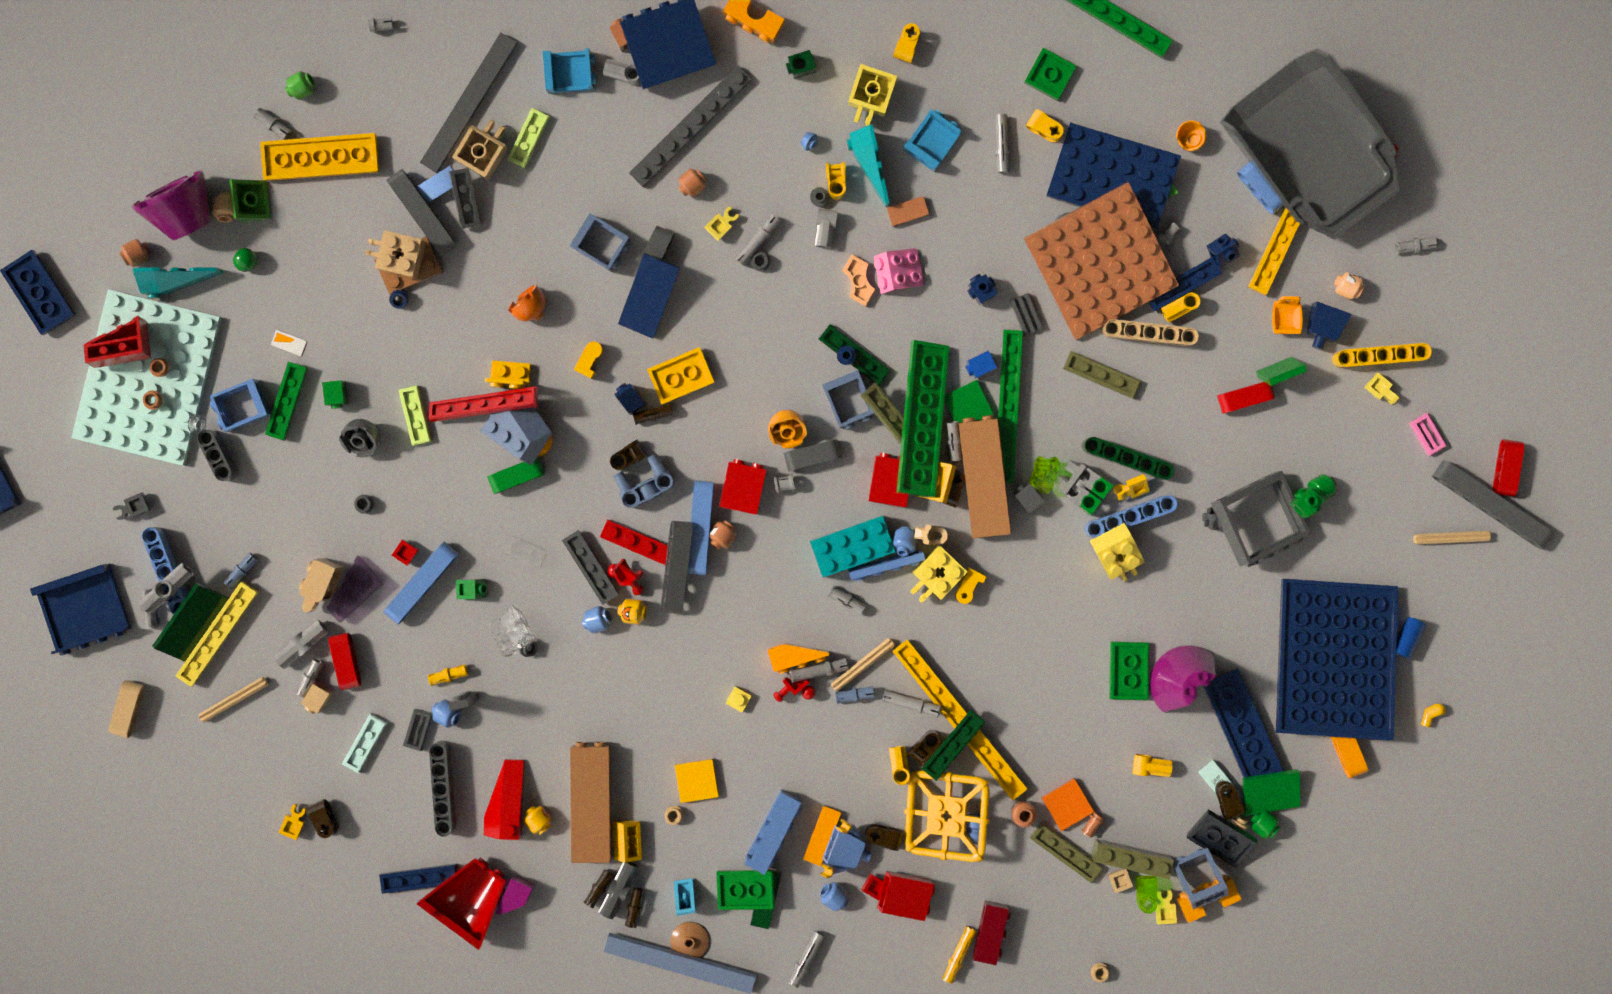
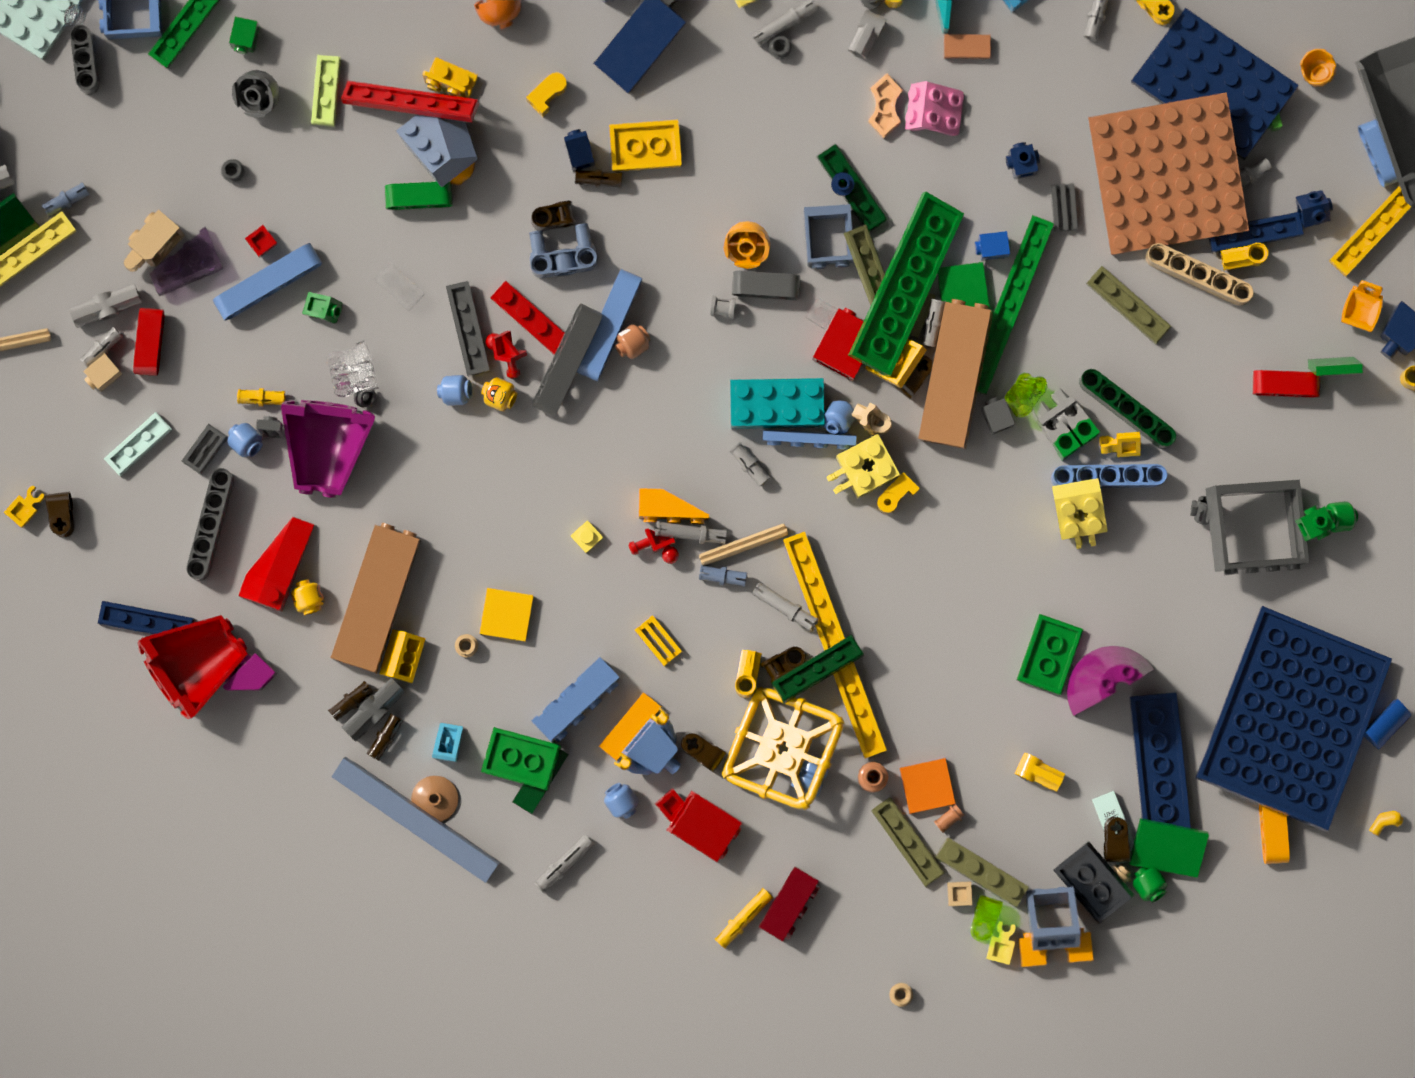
camera: 15 degrees right, 5 degrees down
(507, 696) = (323, 443): none -> magenta cone
(743, 487) = (674, 295): red brick -> none
(807, 753) = (671, 656): none -> yellow tile

